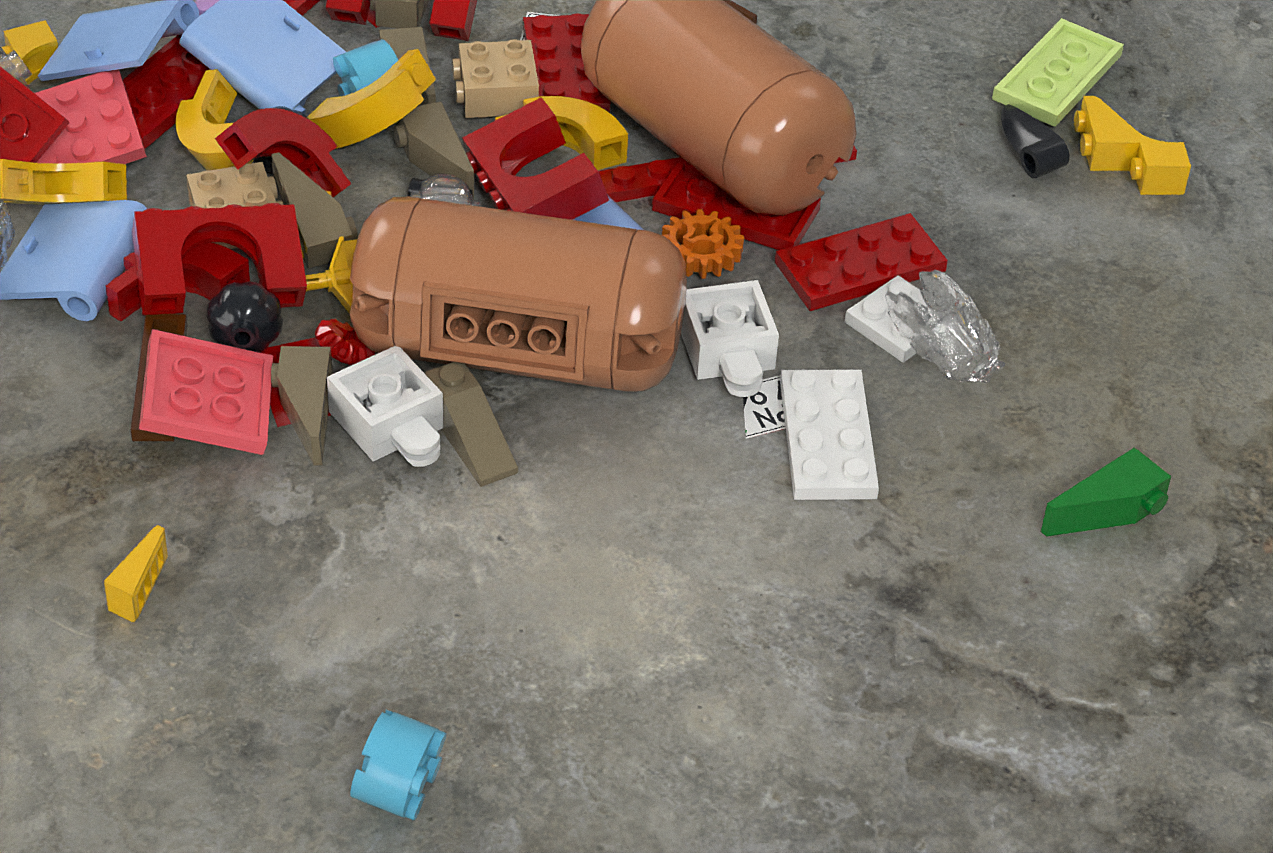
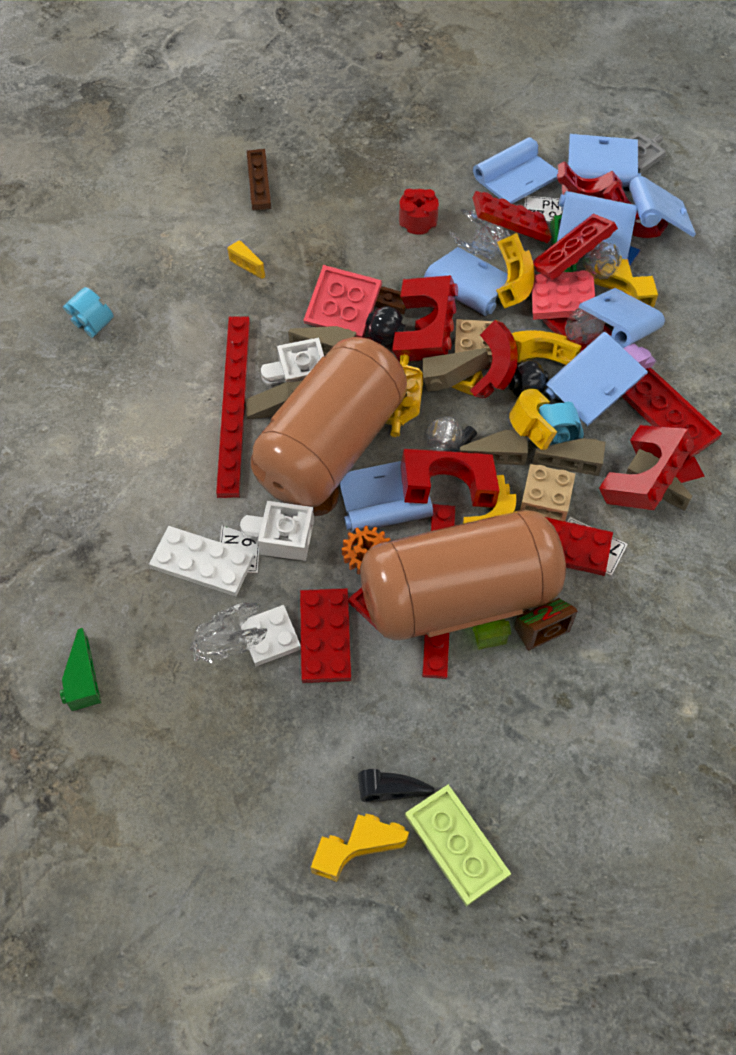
camera: 115 degrees right, 15 degrees up
(157, 79) = (583, 325): none -> clear plant
(491, 495) = (233, 408): none -> red plate

